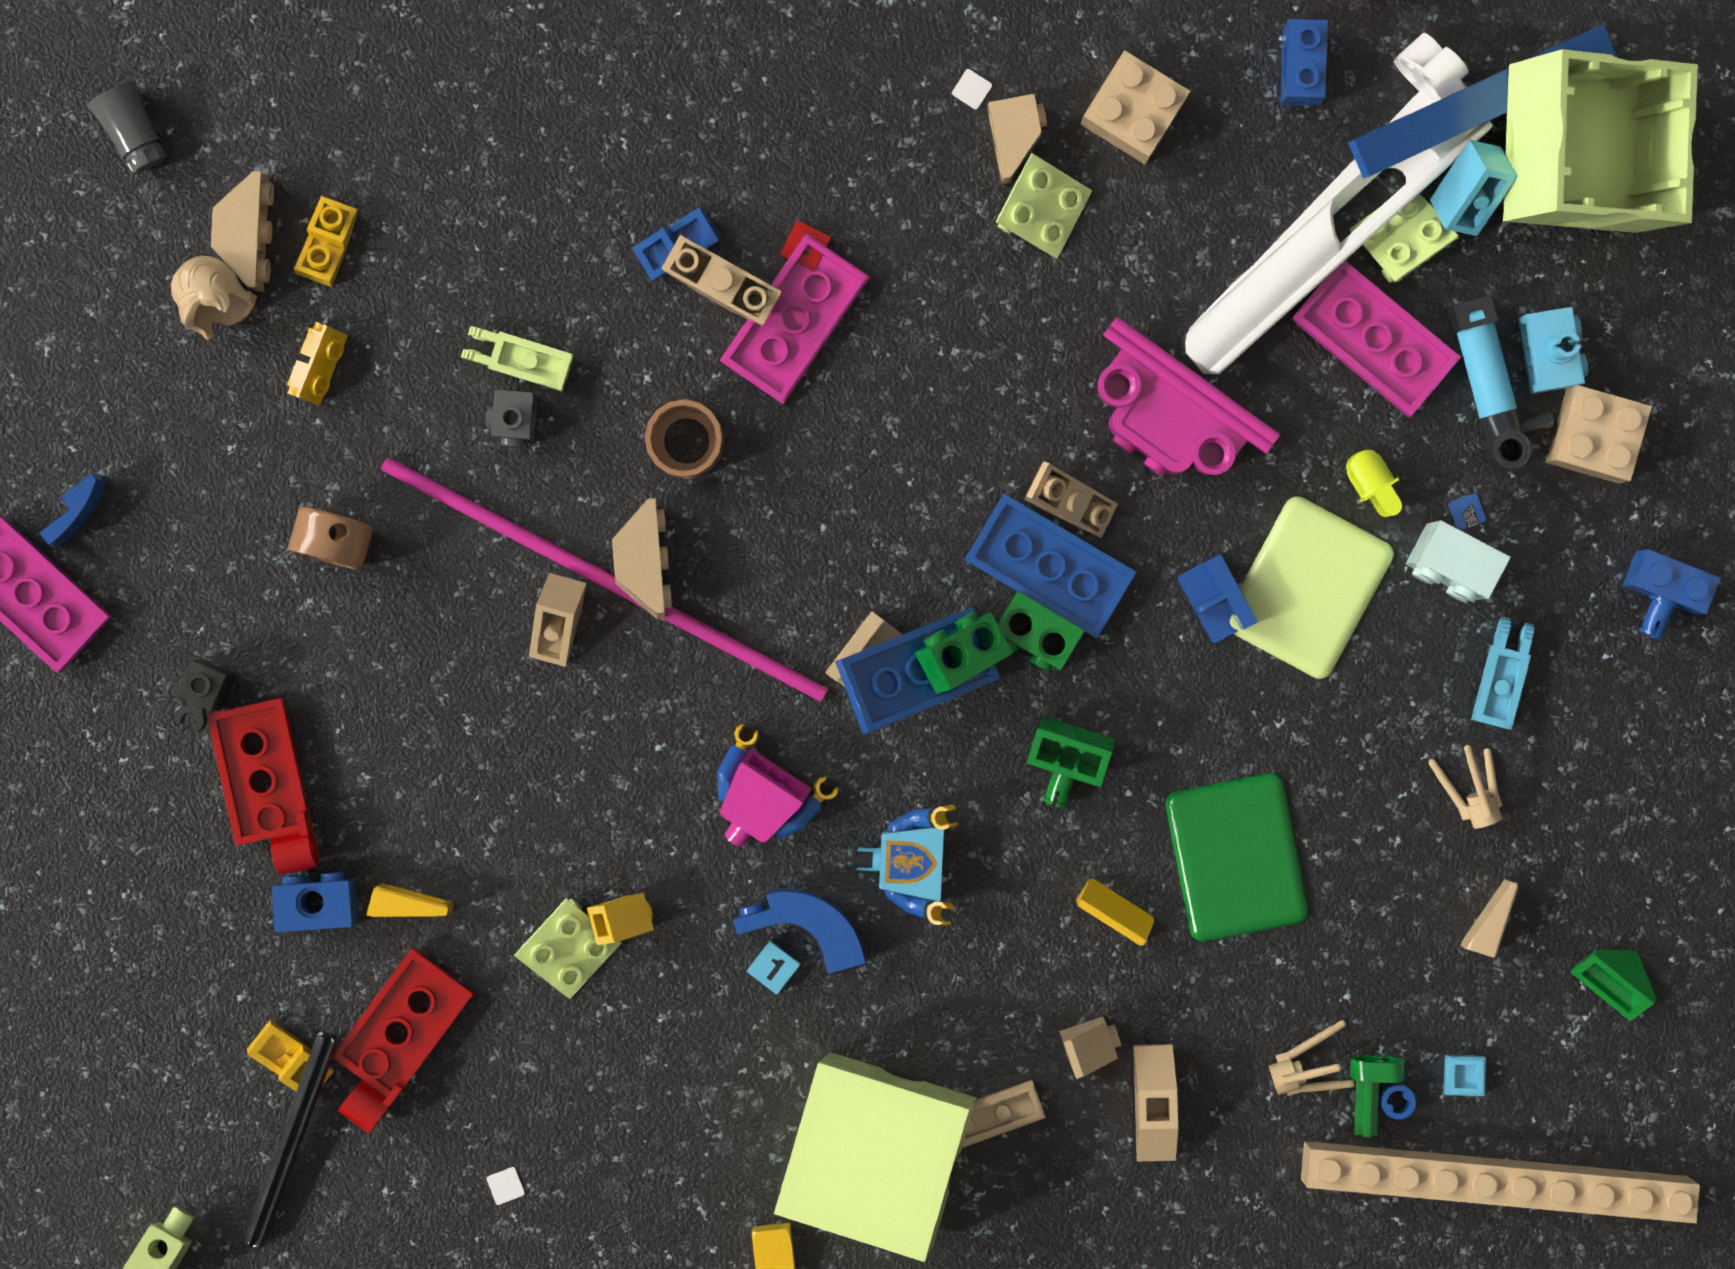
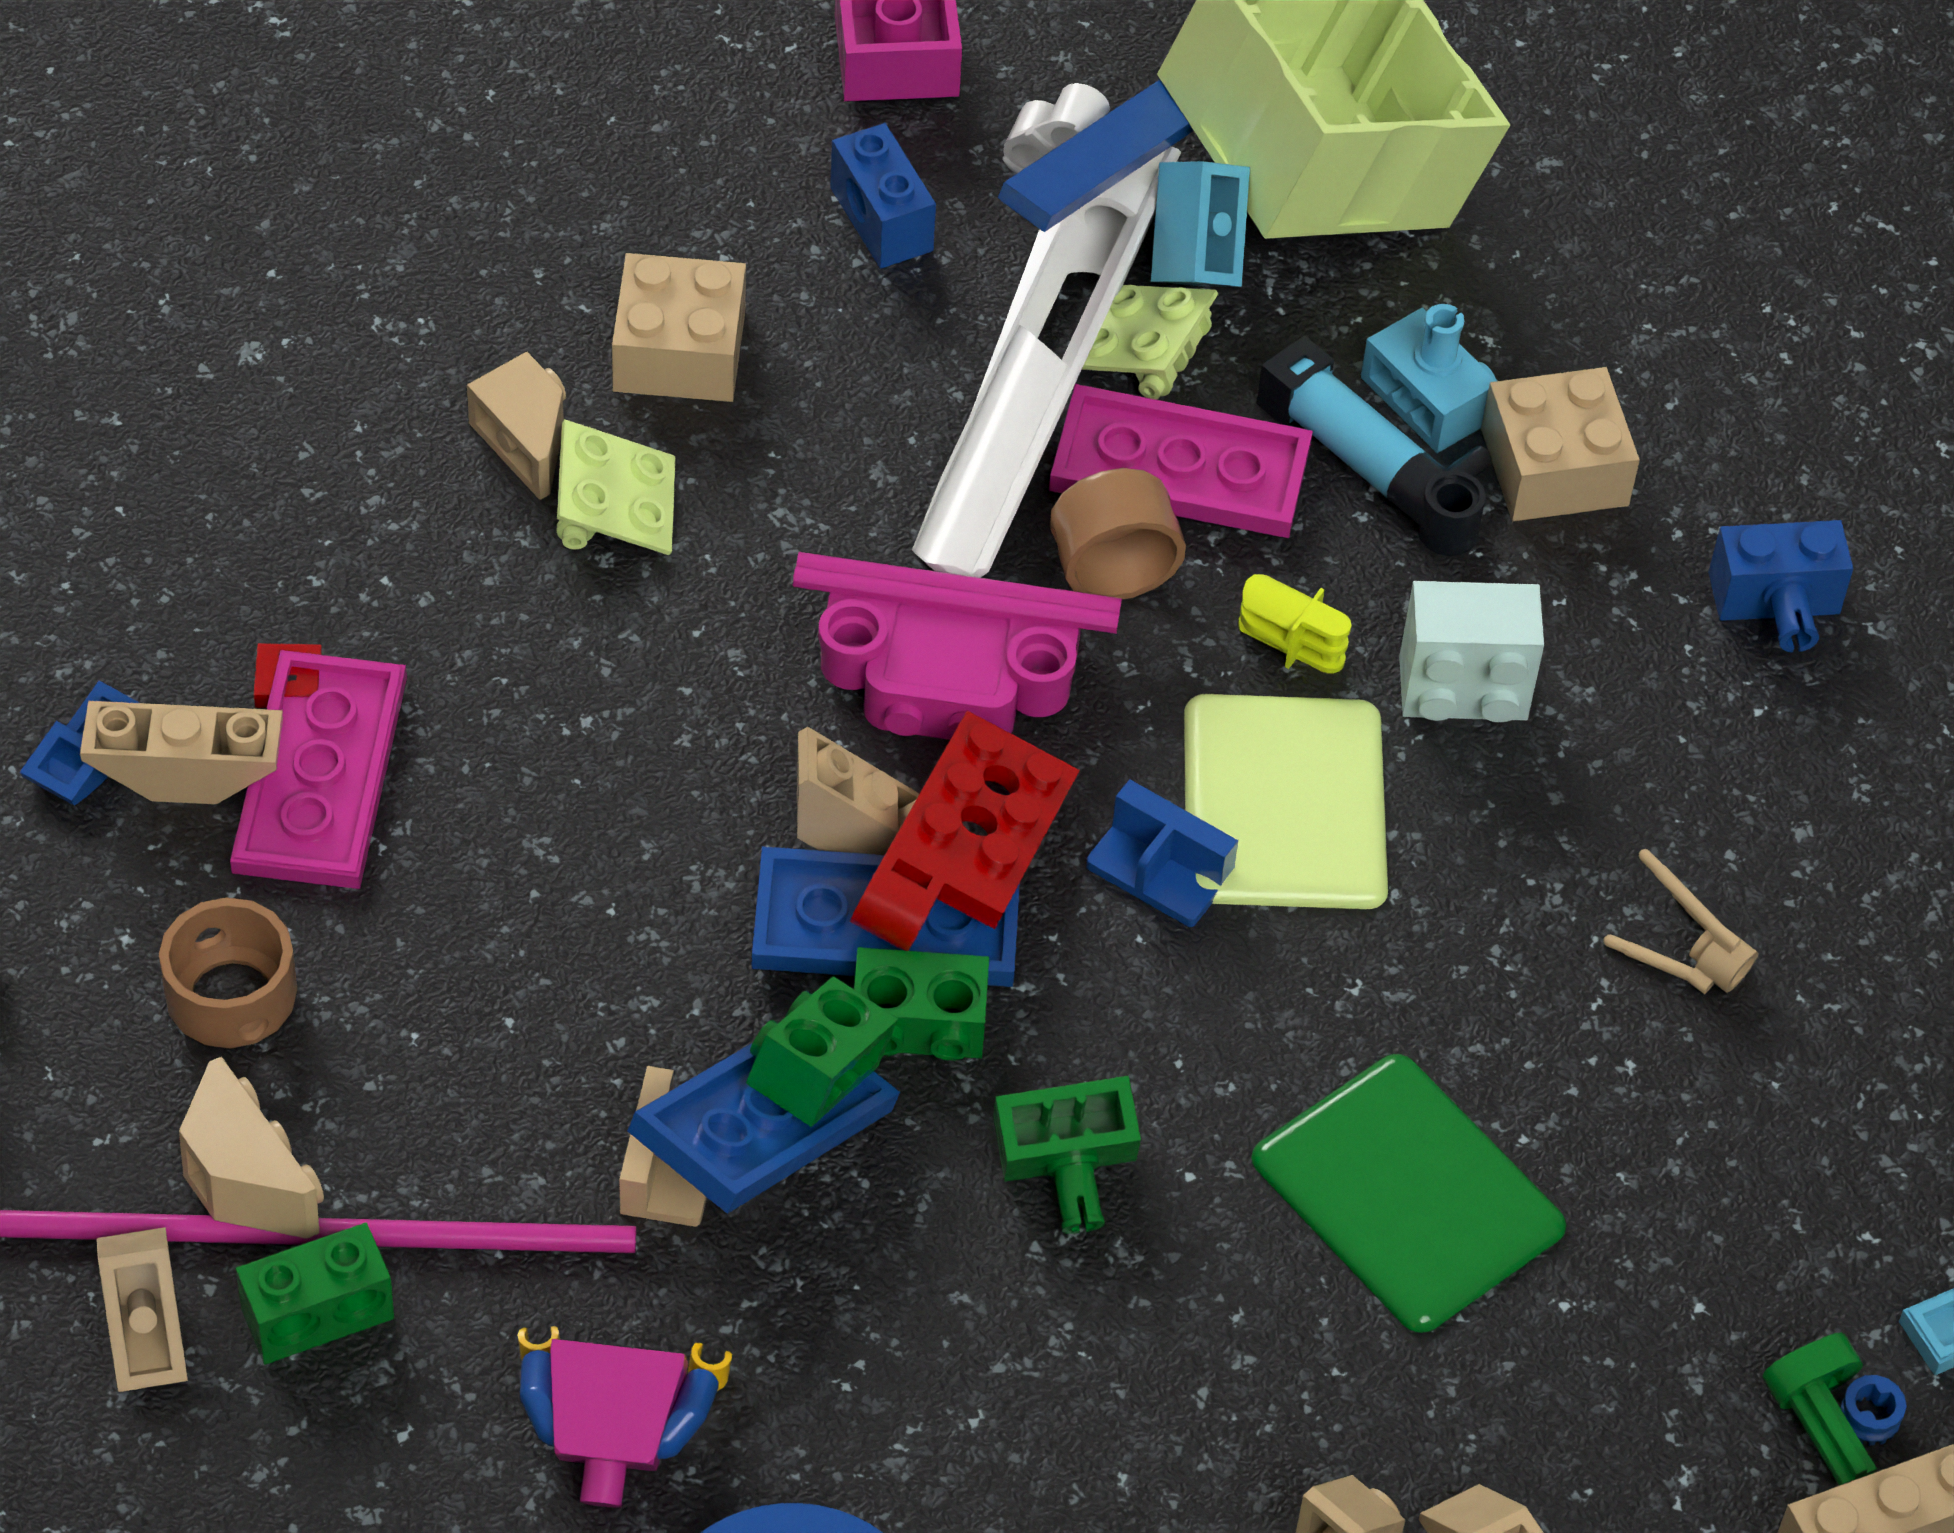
camera: 35 degrees left, 35 degrees down
(645, 657) = (315, 1293): none -> green brick
(912, 862) = (907, 1394): torso -> none
(971, 89) = (432, 408): white sticker -> none
(1087, 554) = (947, 862): none -> red hinge
(1115, 911) = (1270, 1345): yellow slope -> none
(1290, 1077) = (1685, 1444): tan plant -> none
(1303, 384) = (1117, 534): none -> medium nougat piece
(1489, 927) = (1842, 1102): tan slope -> none
(1503, 677) = (1635, 784): medium azure hinge -> none

